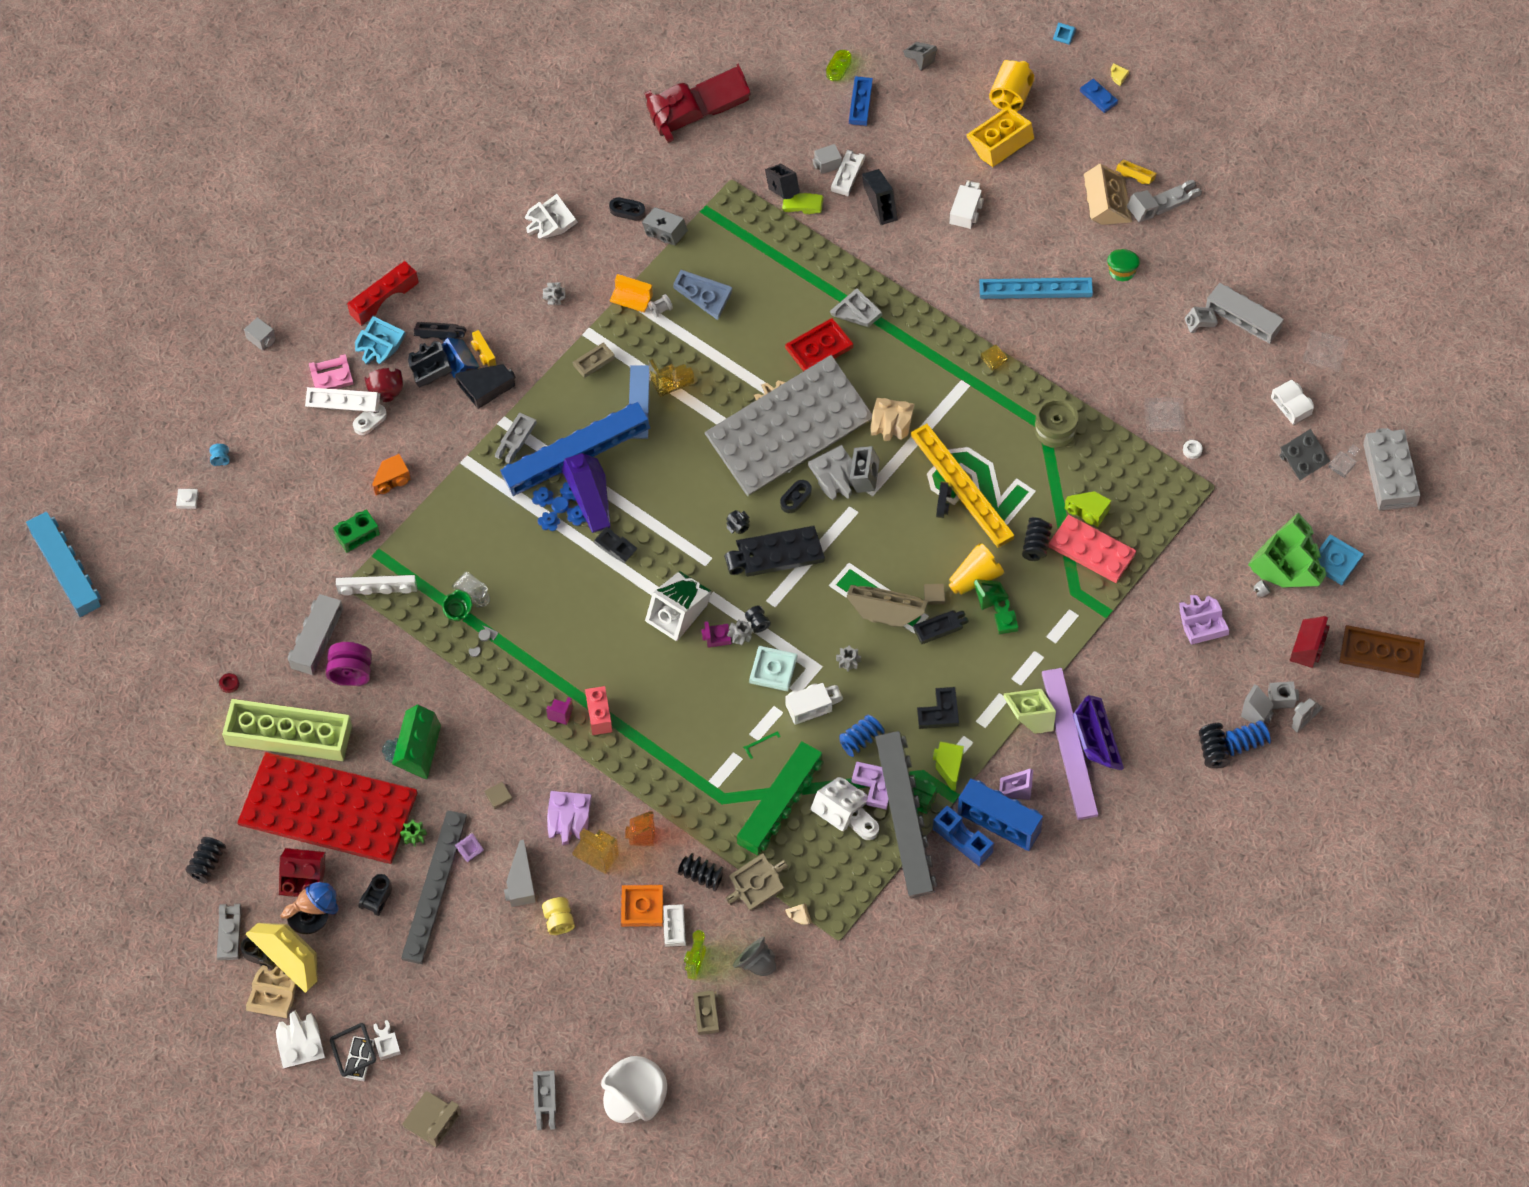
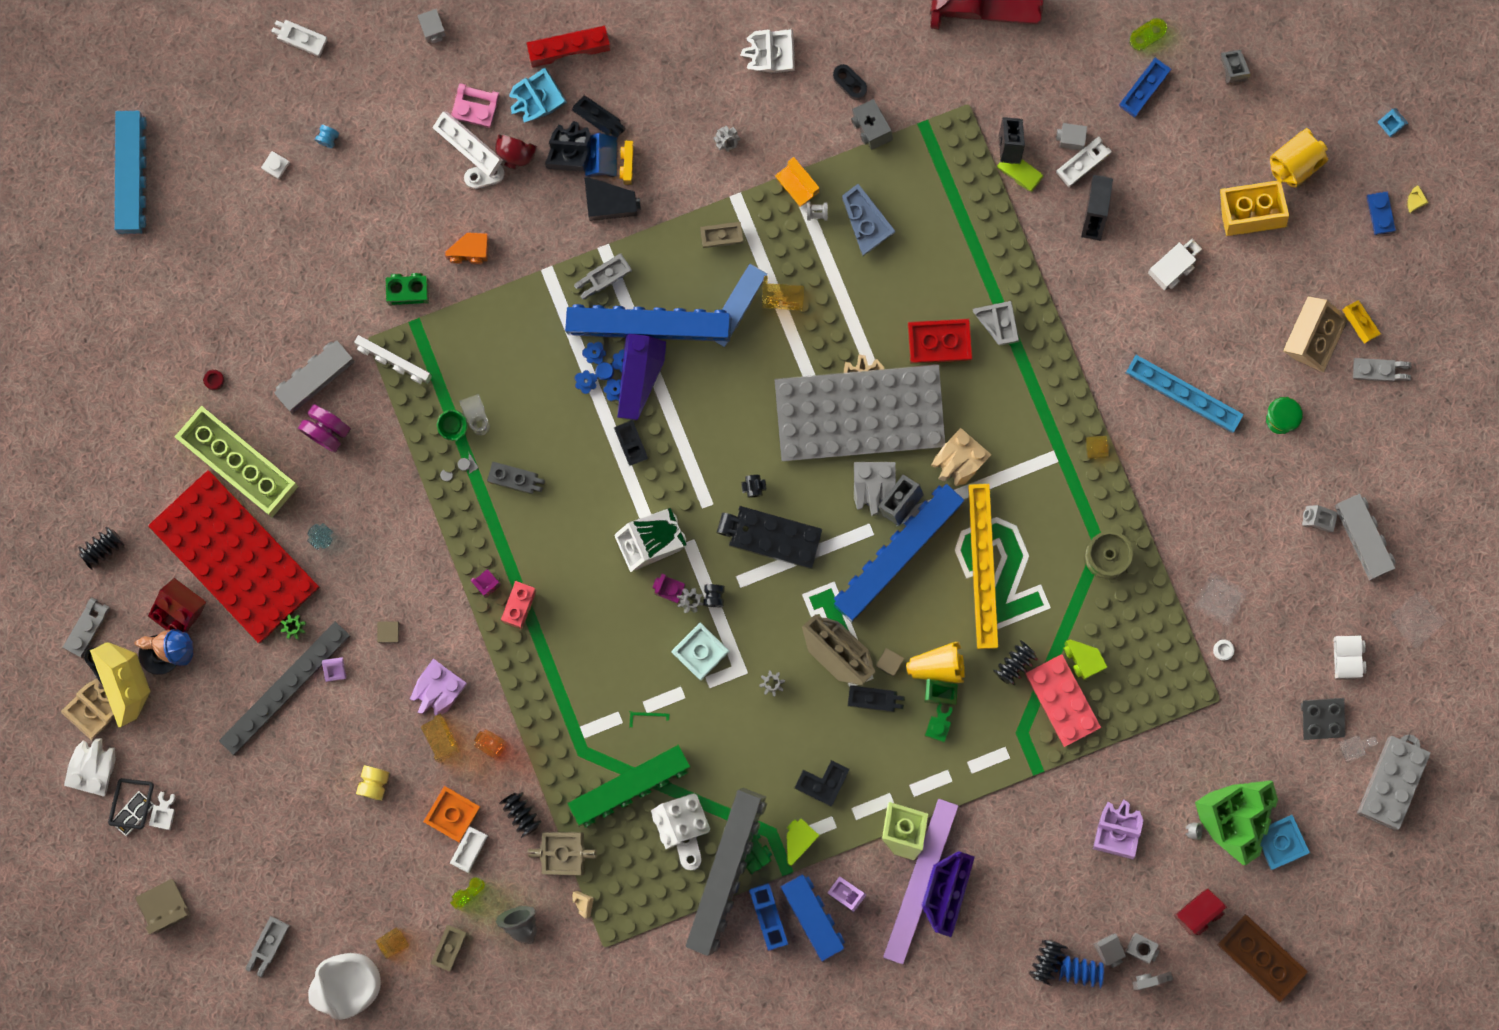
camera: 30 degrees right, 20 degrees up
(153, 396) = (300, 37): none -> white hinge
(374, 898) = (227, 669): black piece -> none
(417, 741) = (342, 542): green slope -> none
(519, 880) = (359, 728): light grey slope -> none
(535, 621) = (514, 478): none -> dark grey hinge
(653, 1036) = (392, 943): none -> clear yellow panel
(794, 497) = (823, 489): black plate -> none
(812, 702) = (713, 707): white brick -> none
(859, 734) = (736, 766): blue piece -> none
(872, 777) = (720, 810): lavender plate -> none
(887, 511) = (898, 552): none -> blue brick
(944, 493) = (961, 566): black plate -> none
(1142, 205) = (1342, 364): light grey brick -> none

